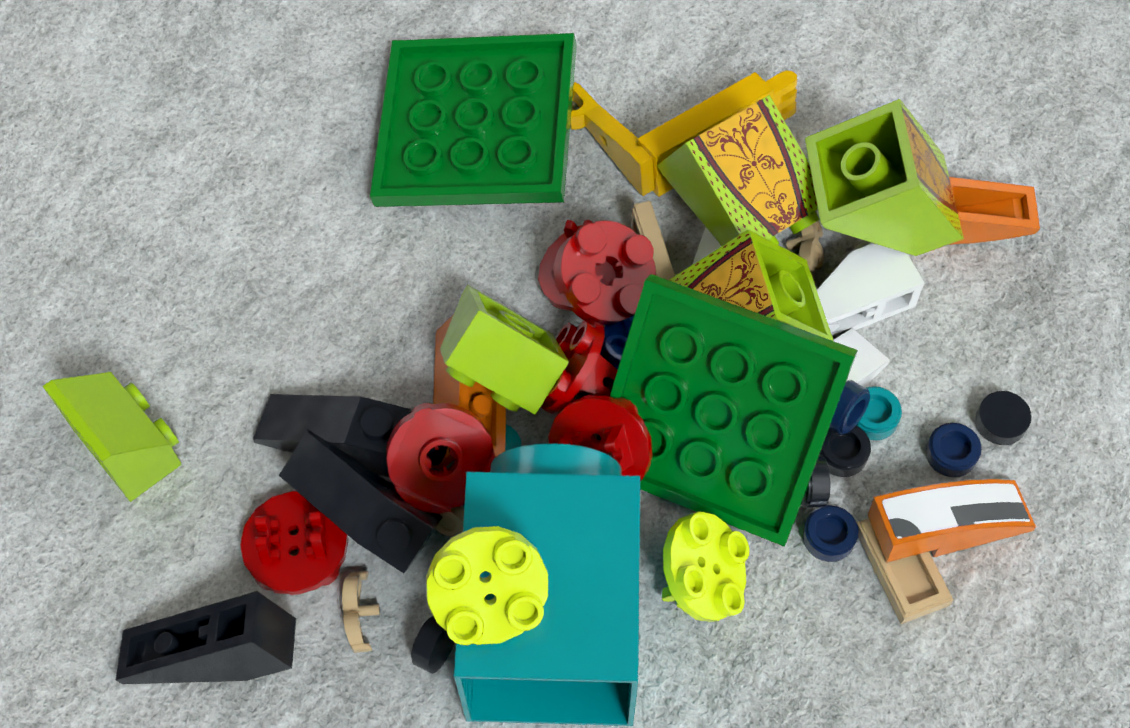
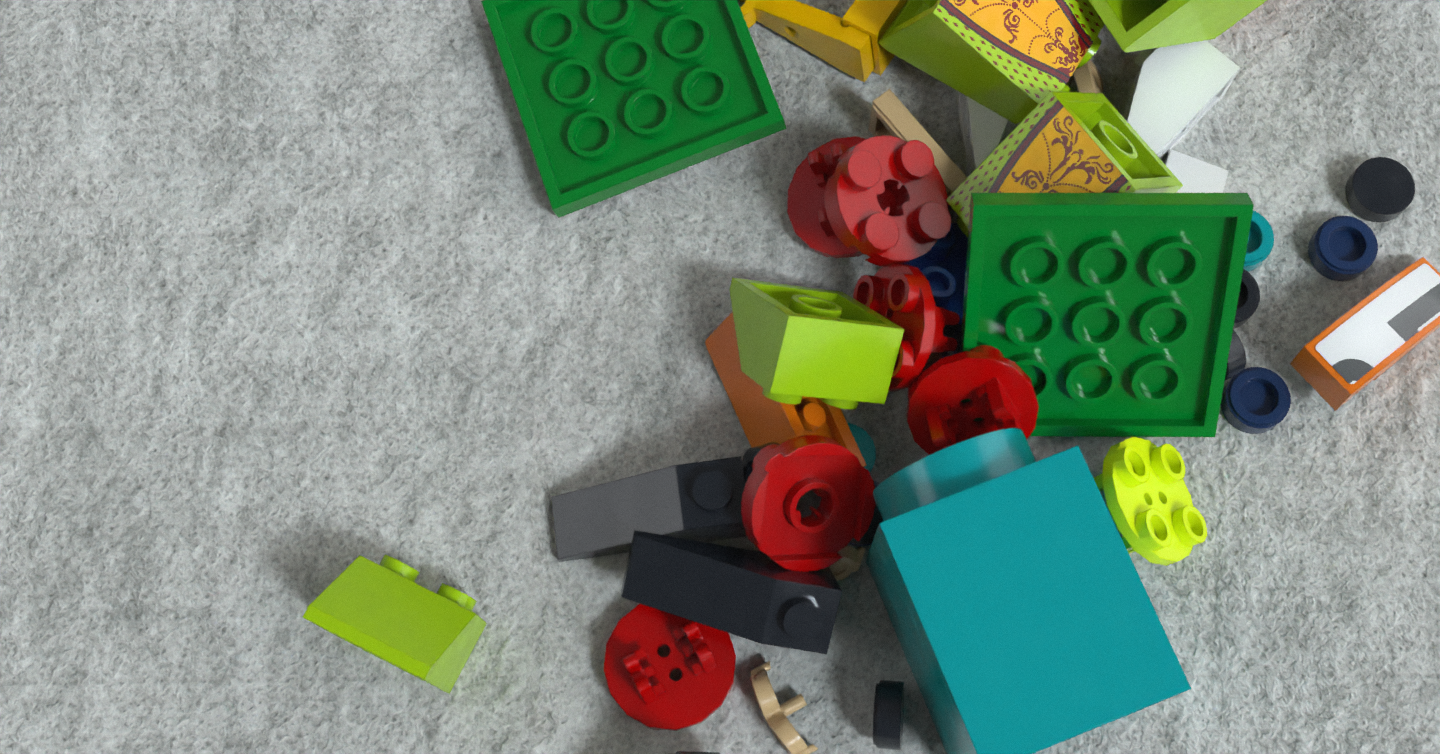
camera: 20 degrees left, 10 degrees up
(515, 578) = (994, 684): neon yellow plate -> none
(910, 583) = (1367, 424): tan tile -> none

